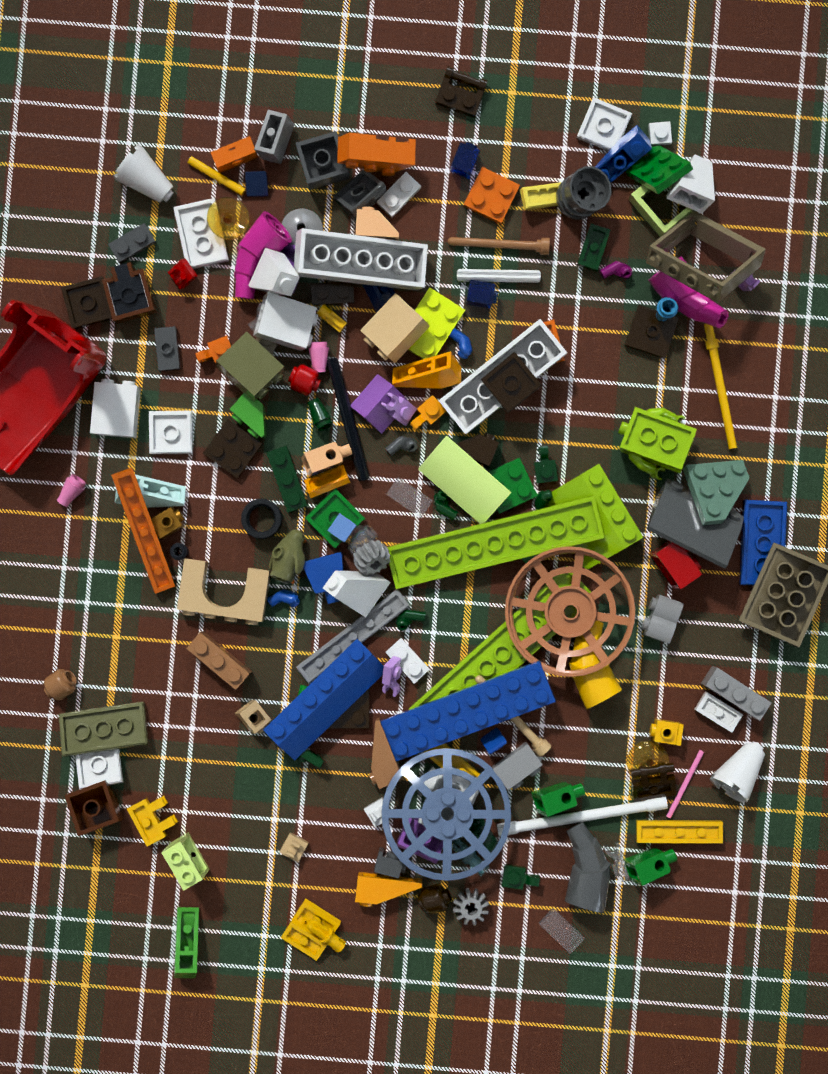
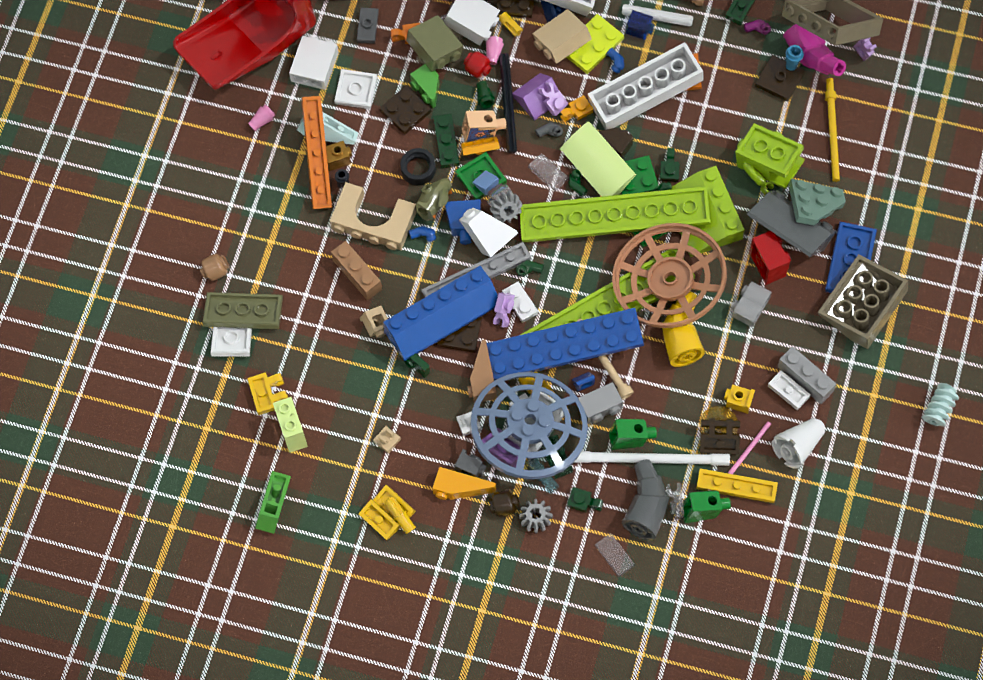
camera: 15 degrees right, 20 degrees down
(93, 807) = (219, 370): reddish brown slope -> none
(431, 372) = (584, 76): light orange slope -> none
(511, 382) = (651, 85): dark brown plate -> none

